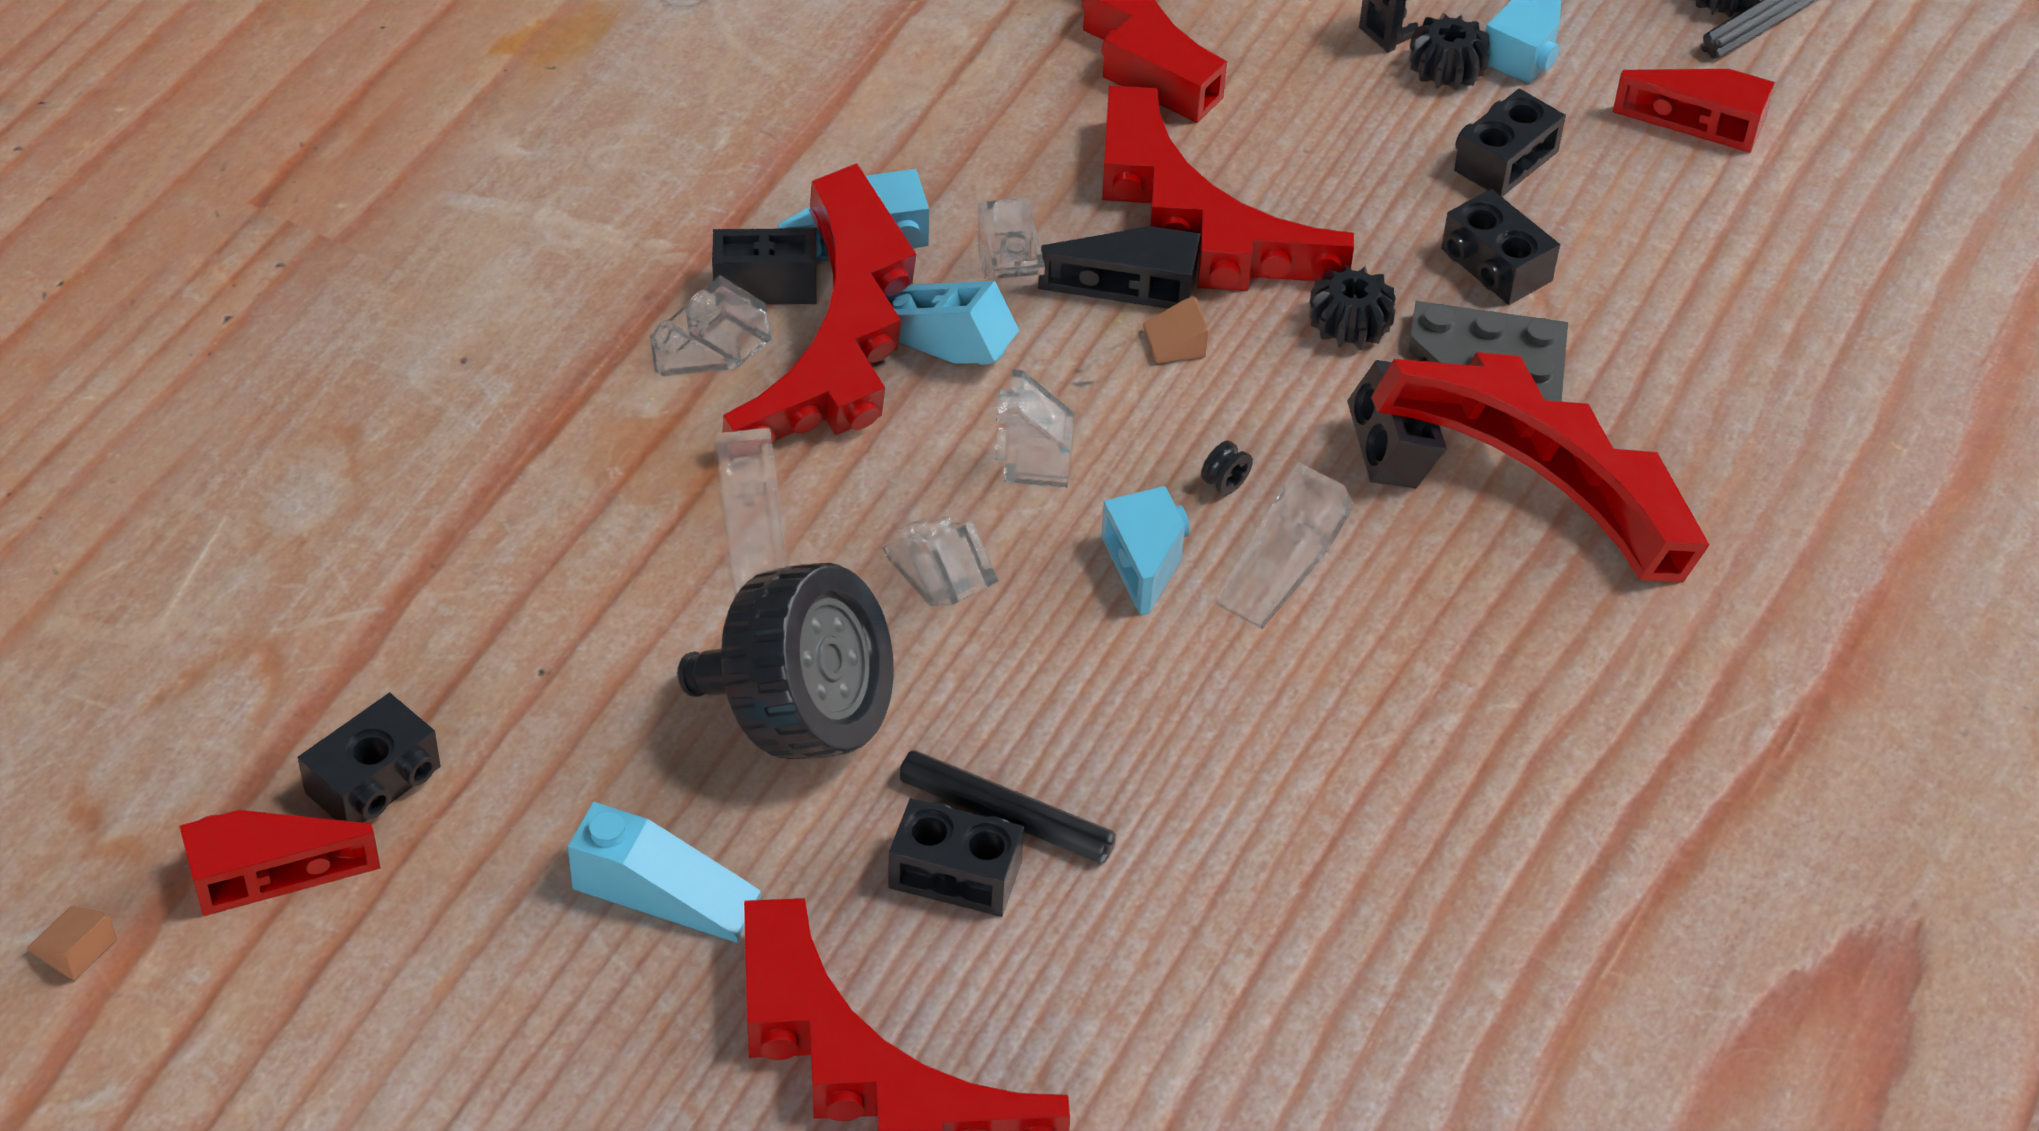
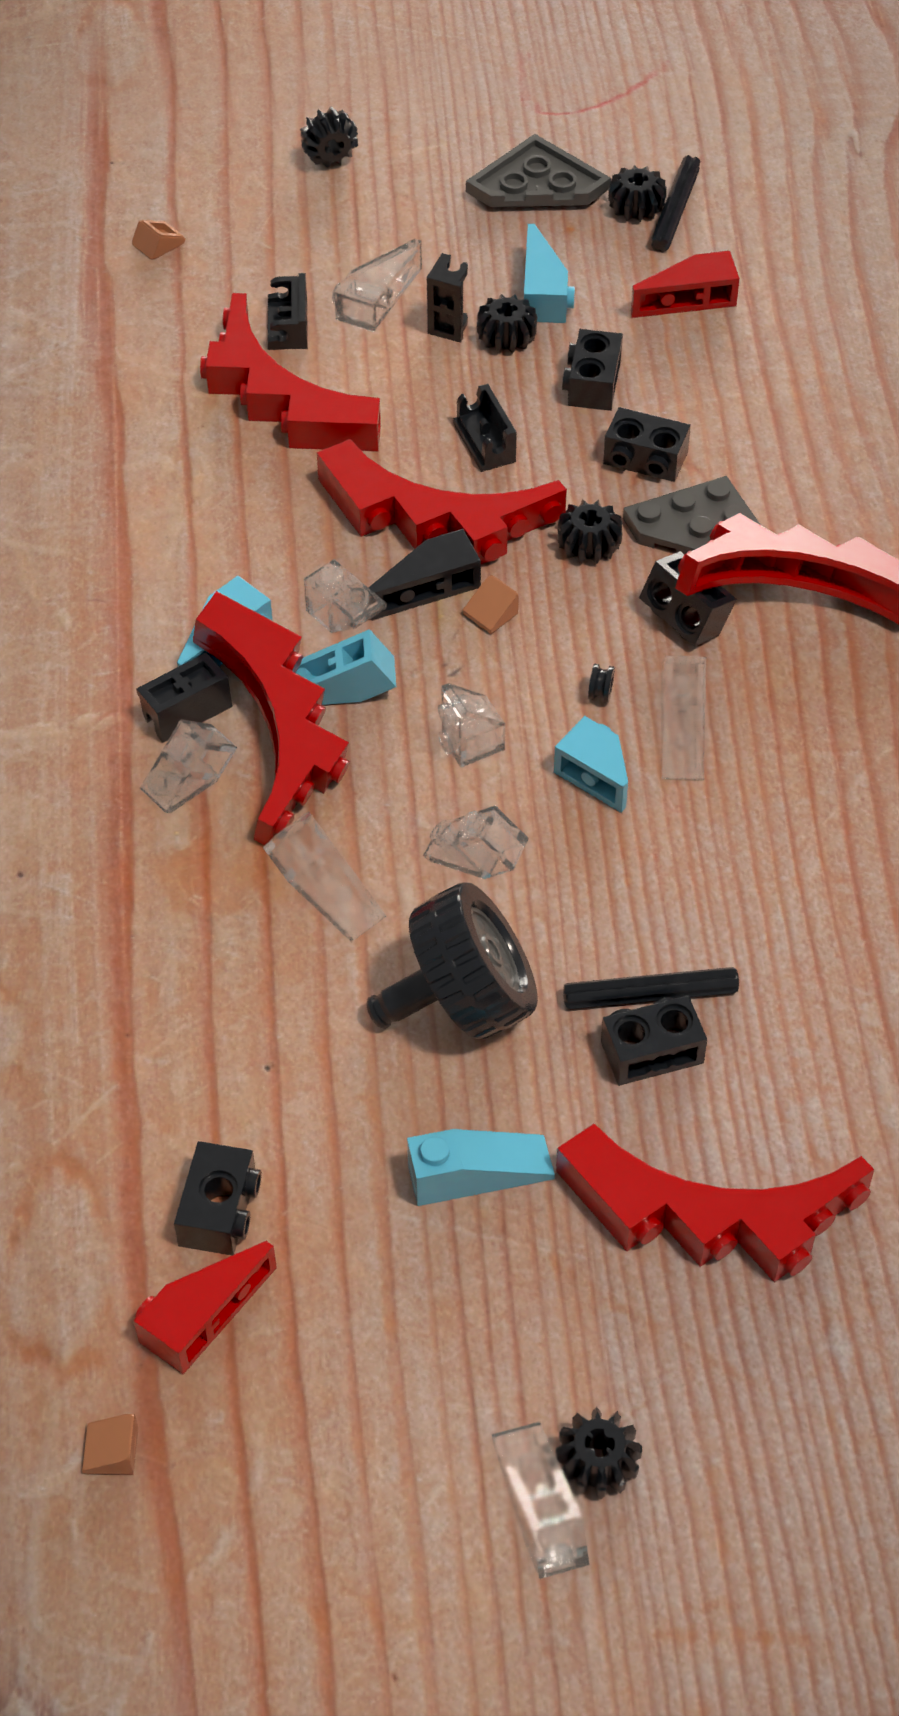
camera: 30 degrees left, 5 degrees up
(1327, 152) = (486, 430): none -> black hinge

